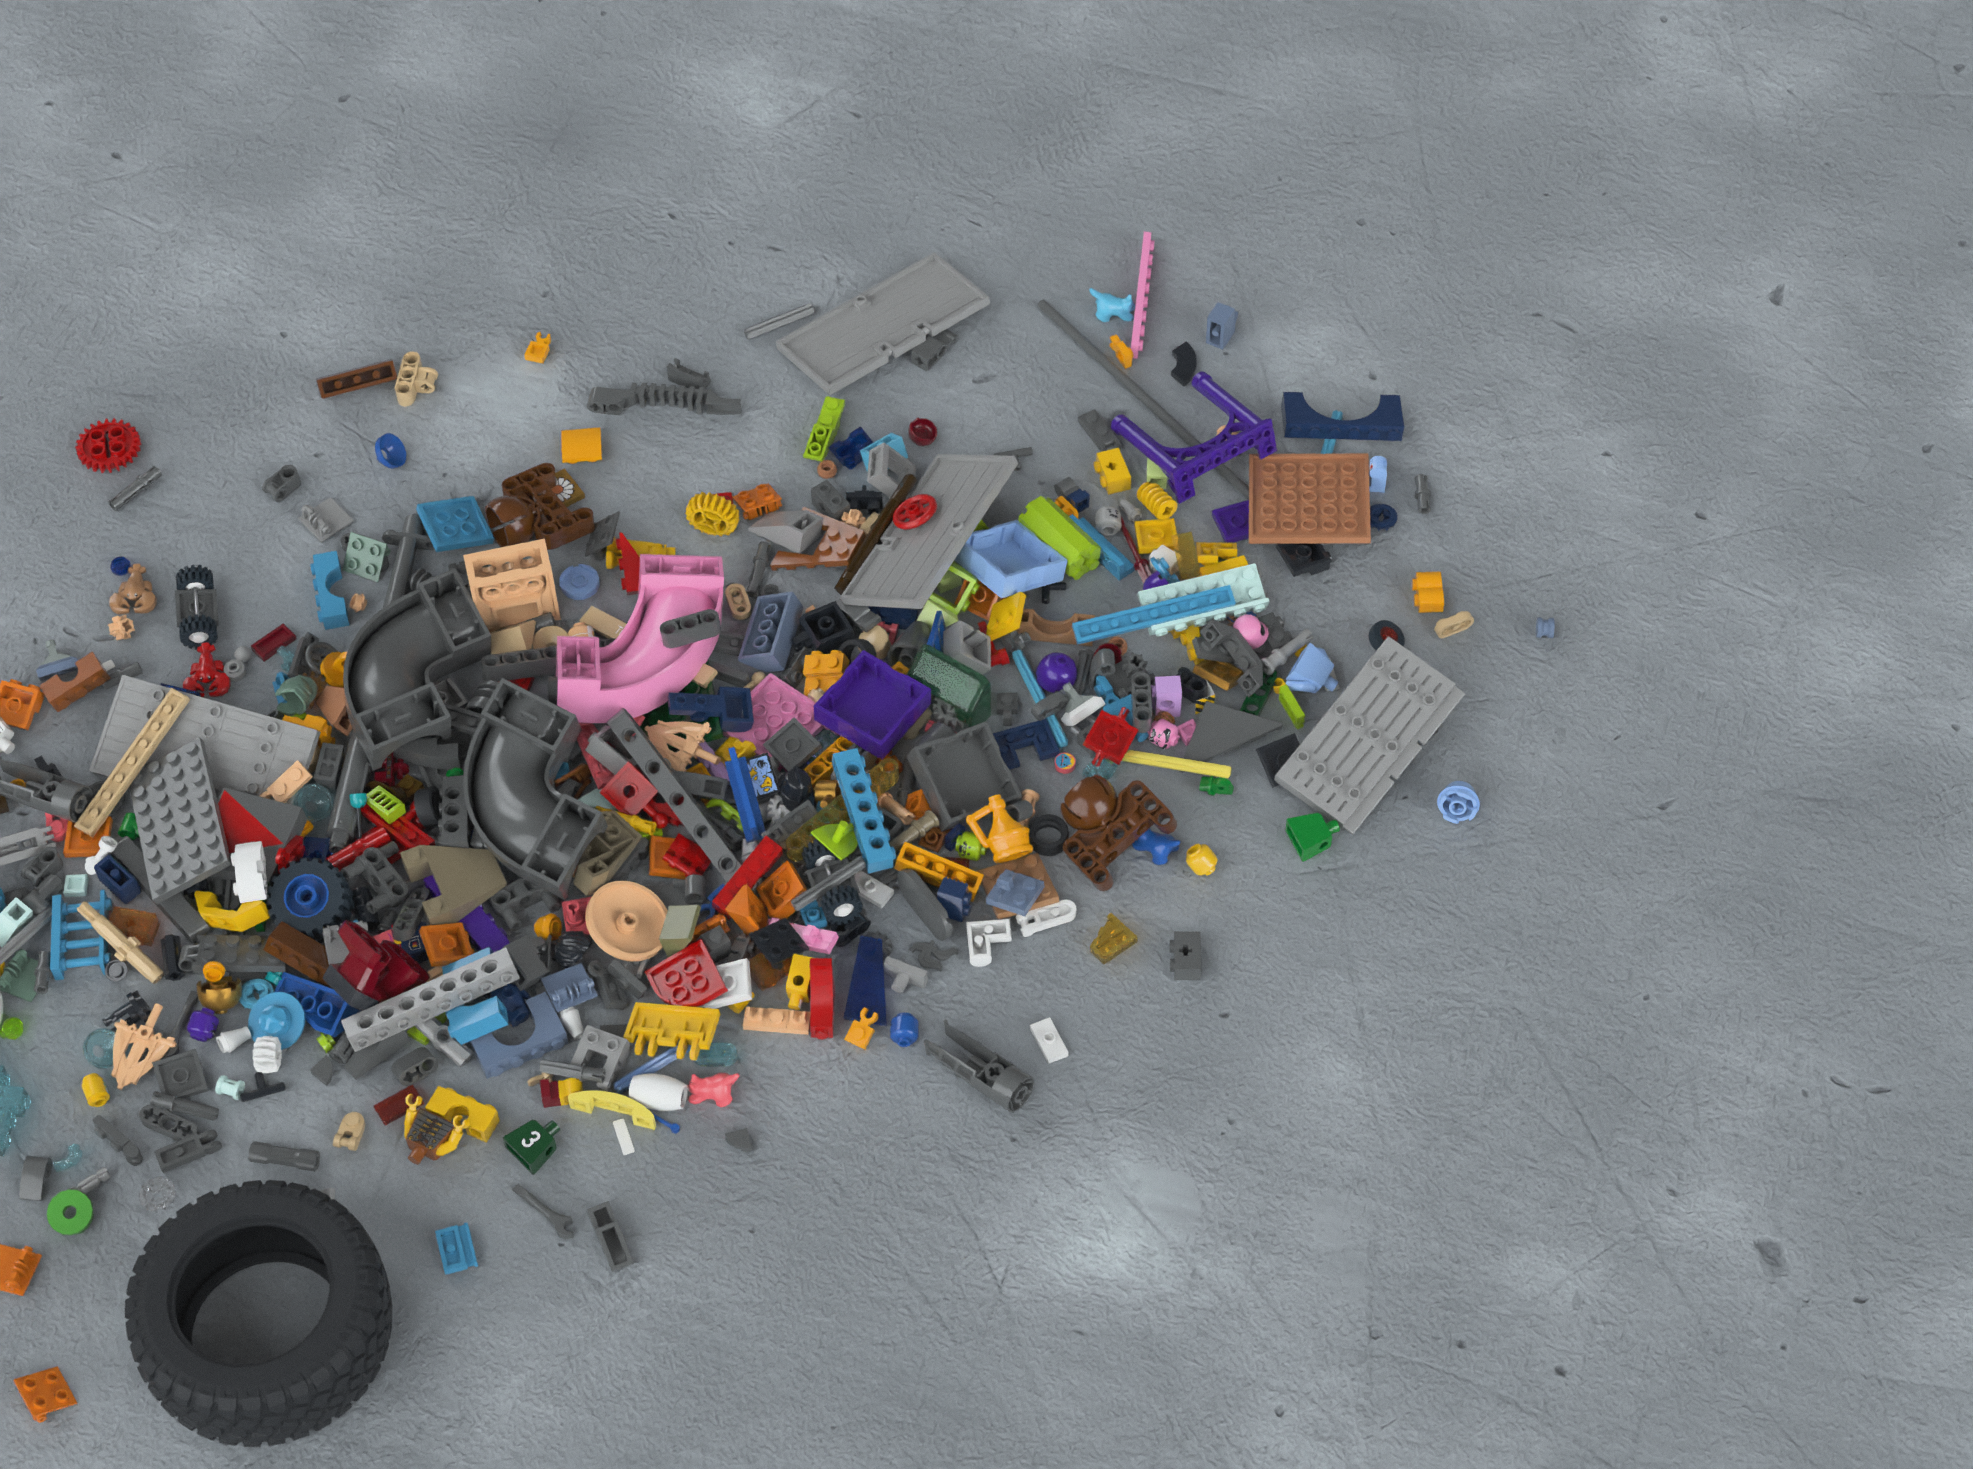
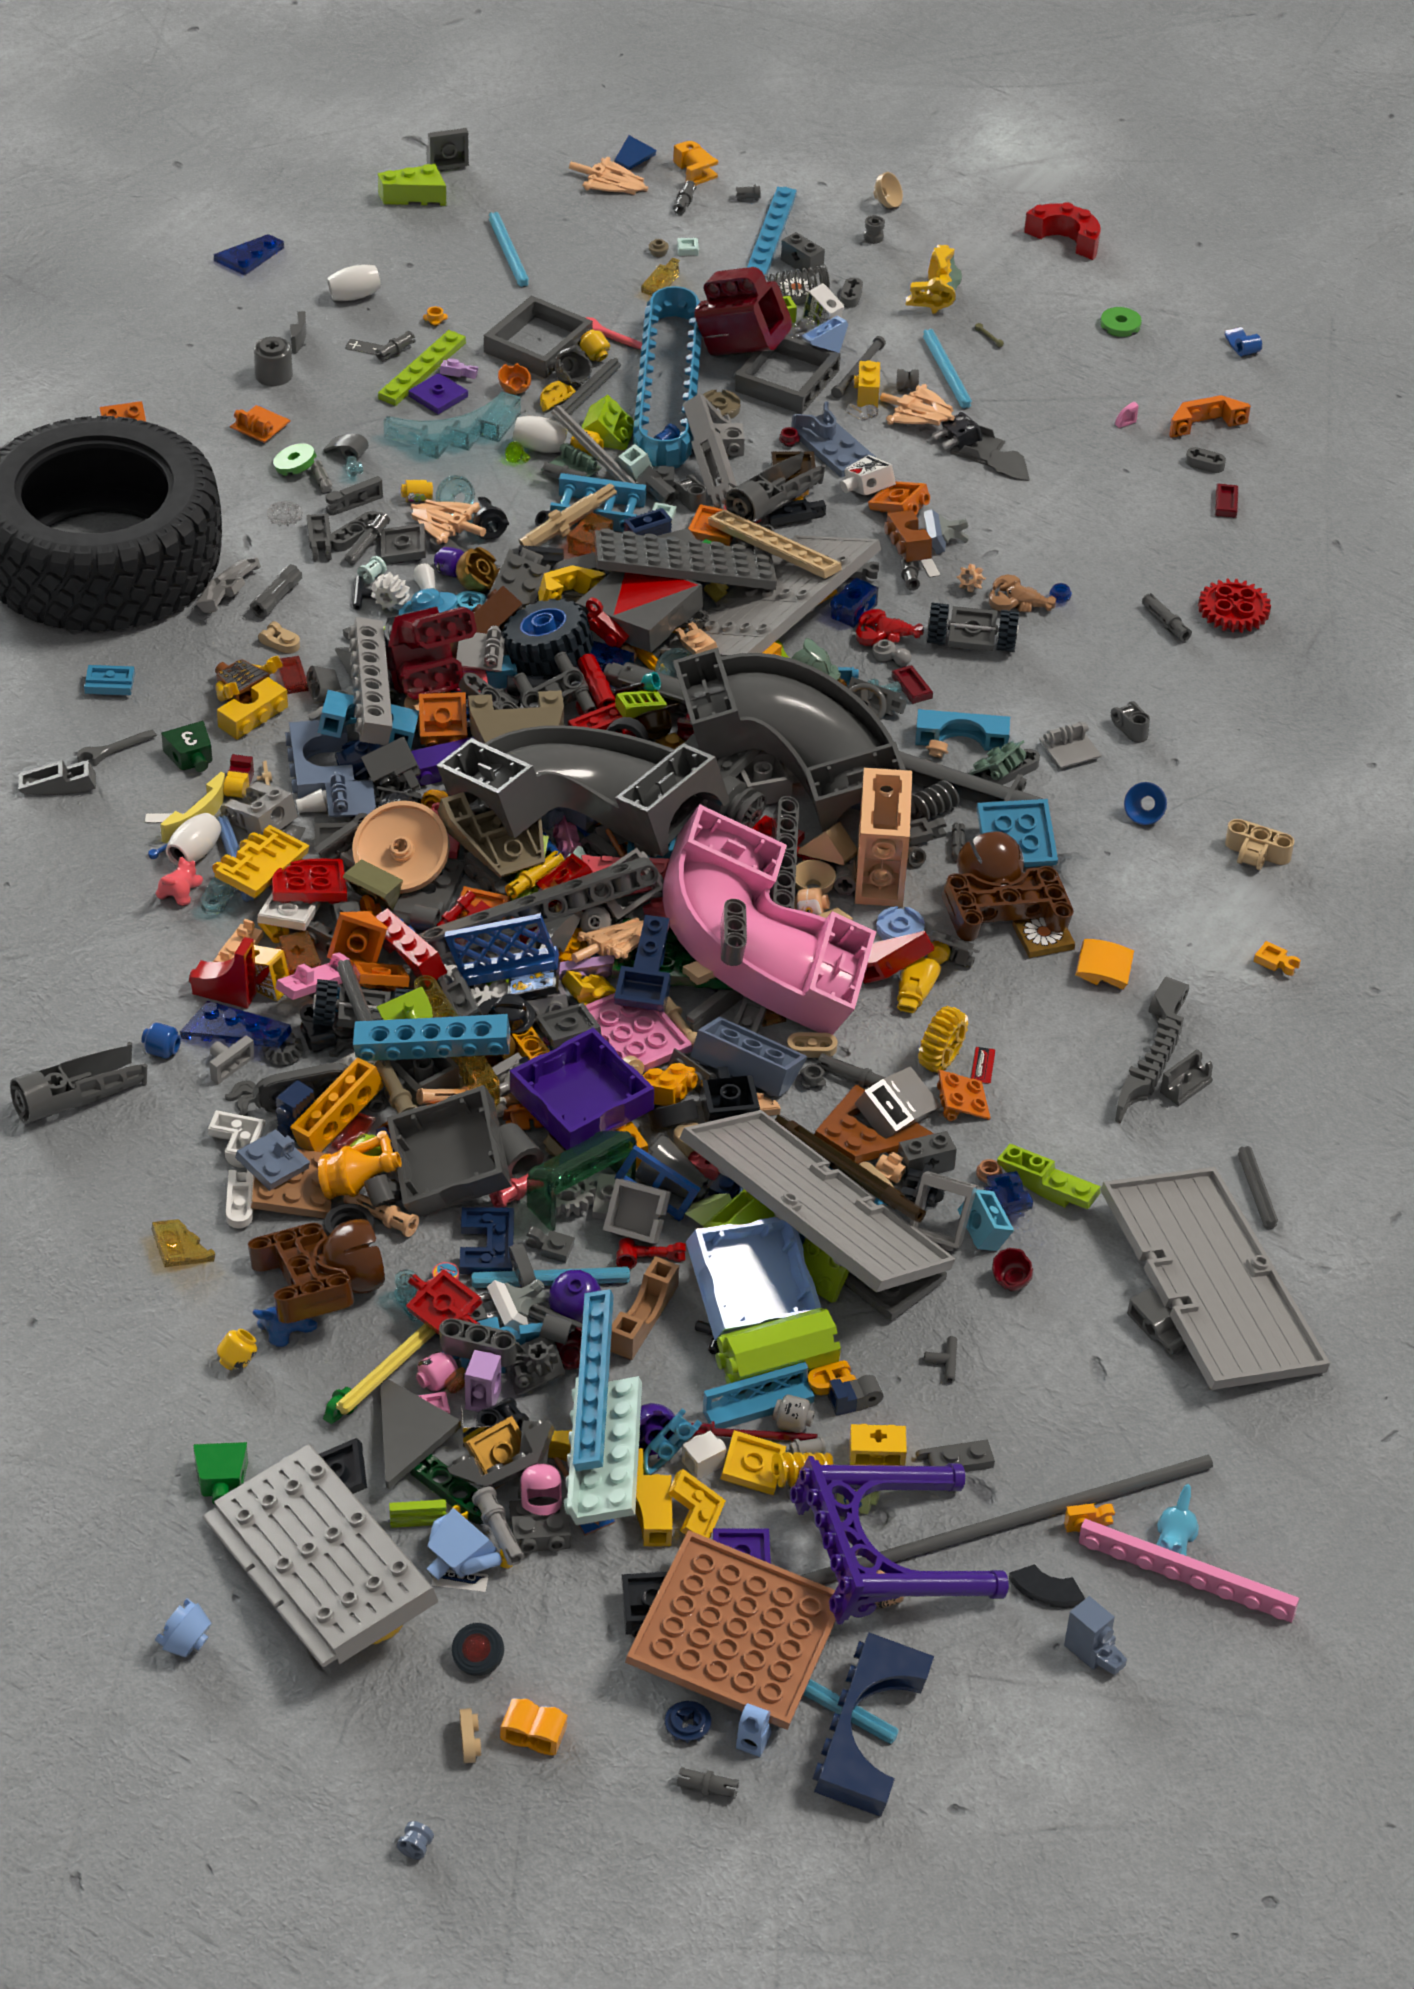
camera: 105 degrees right, 10 degrees down
(106, 845) = (681, 519): white leg -> none
(213, 971) = (495, 562): light orange plate -> none
(250, 872) = (585, 583): white brick -> none
(356, 378) = (1268, 793): reddish brown brick -> none
(573, 1071) = (242, 784): dark grey axle -> none
(739, 1140) = (109, 894): dark grey tile -> none
(778, 942) = (309, 946): black hinge -> none
(861, 1032) = (179, 1007): light orange plate -> none
(914, 511) = (854, 1195): red plate -> none
(1006, 616) = (662, 1250): yellow plate -> none
(1015, 641) = (635, 1265): dark grey plate -> none
(1049, 1040) = (84, 1158): white plate -> none
(1186, 555) = (687, 1457): clear yellow hinge -> none
(1187, 955) = (118, 1301): dark grey brick -> none

